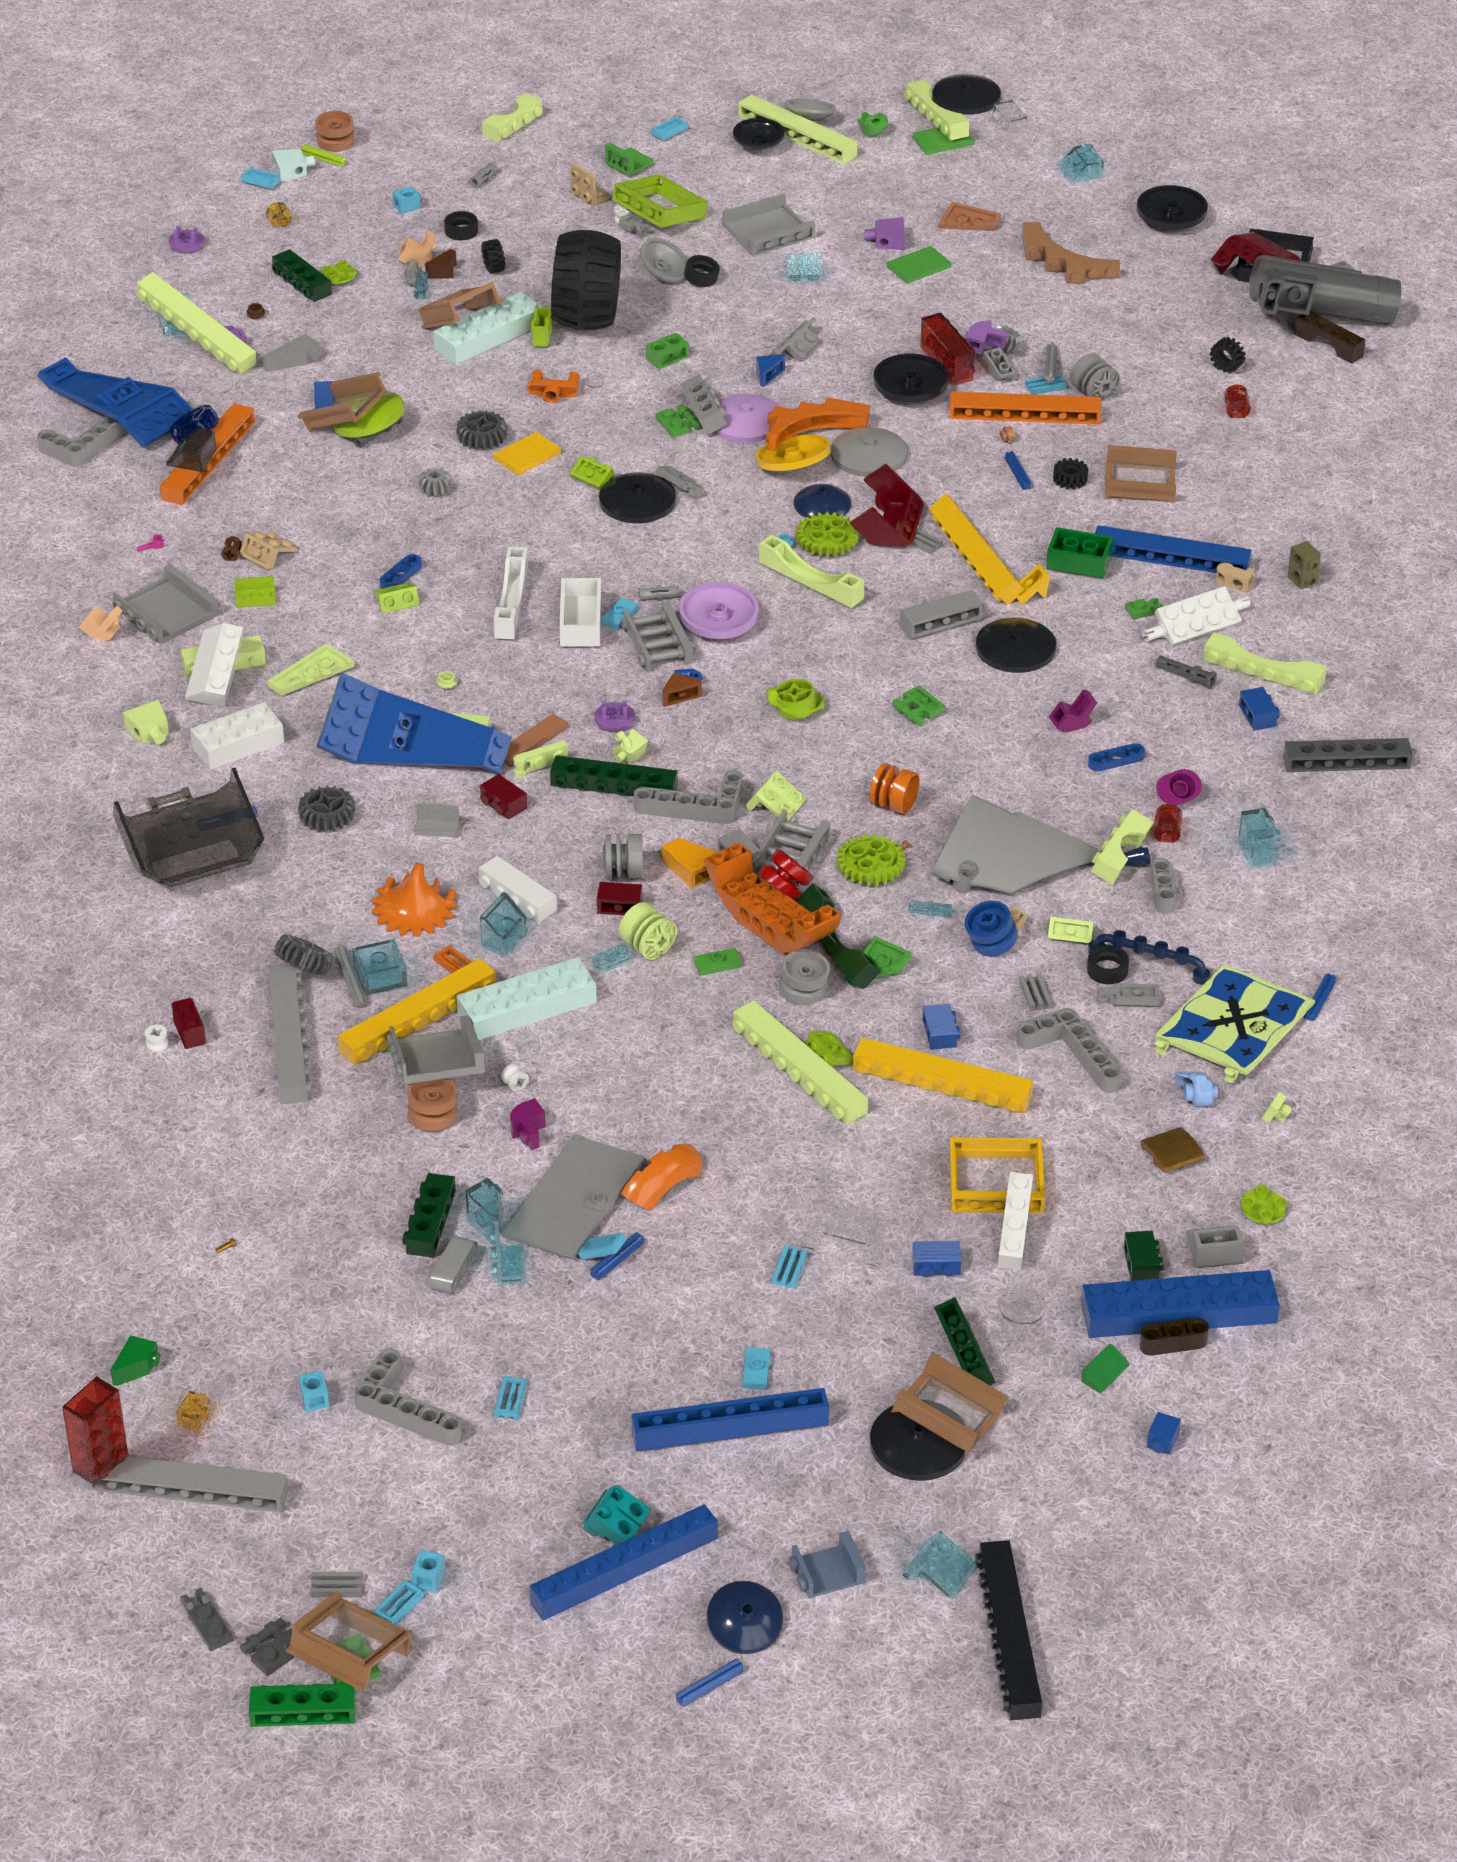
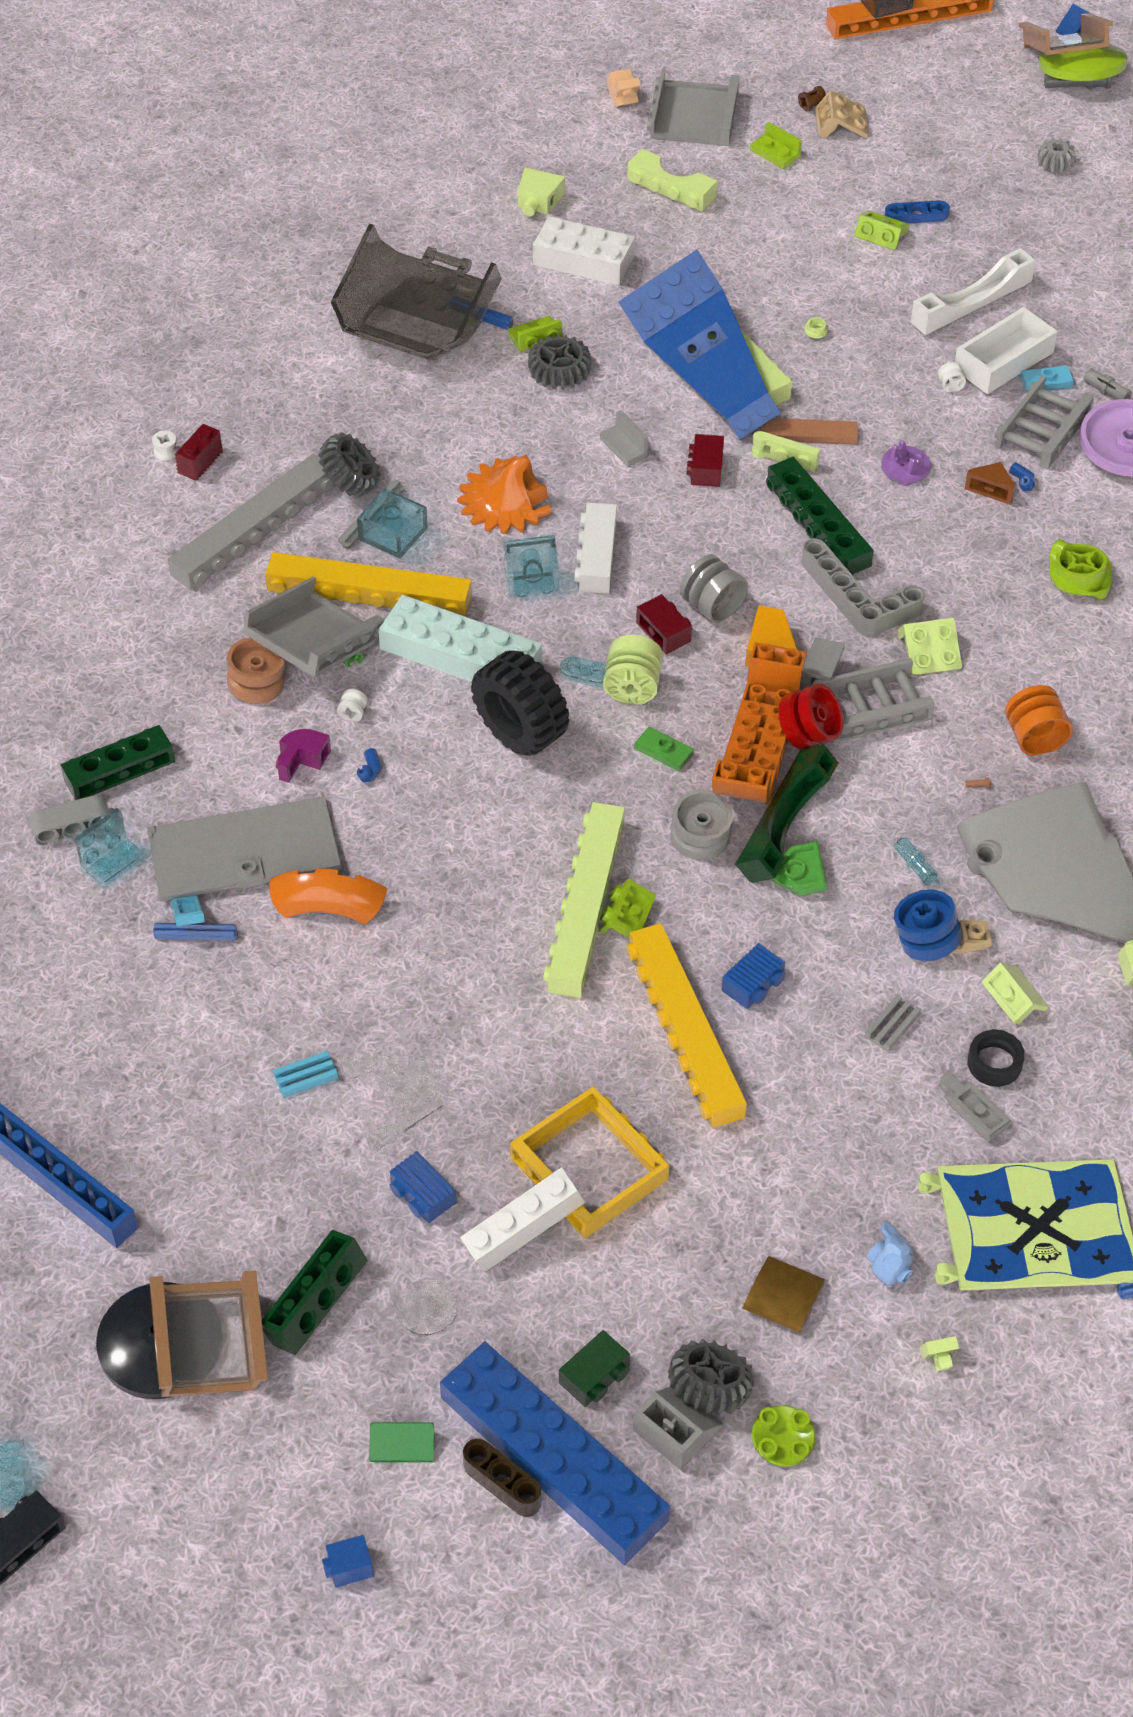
camera: 50 degrees right, 10 degrees up
(157, 543) = (766, 55): dark pink hand -> none
(215, 664) = (647, 181): white slope -> none
(281, 805) = (529, 333): none -> lime bracket
(314, 667) = (725, 240): yellowish green wing -> none
(449, 963) = (466, 553): orange tile -> none
(484, 1207) = (149, 798): clear light blue slope -> none
(569, 650) = (951, 377): none -> white wheel
(576, 1099) = (372, 768): none -> blue arm
(626, 969) = (520, 702): none -> black tyre
(631, 748) = (871, 500): yellowish green piece -> none
(756, 1368) = (142, 1138): medium azure plate -> none
(871, 859) = (928, 769): lime gear -> none
(1069, 1027) = (851, 1110): light grey beam -> none
(1160, 951) = (1073, 1148): dark blue bar -> none
(1201, 1207) = (710, 1377): none -> dark grey gear

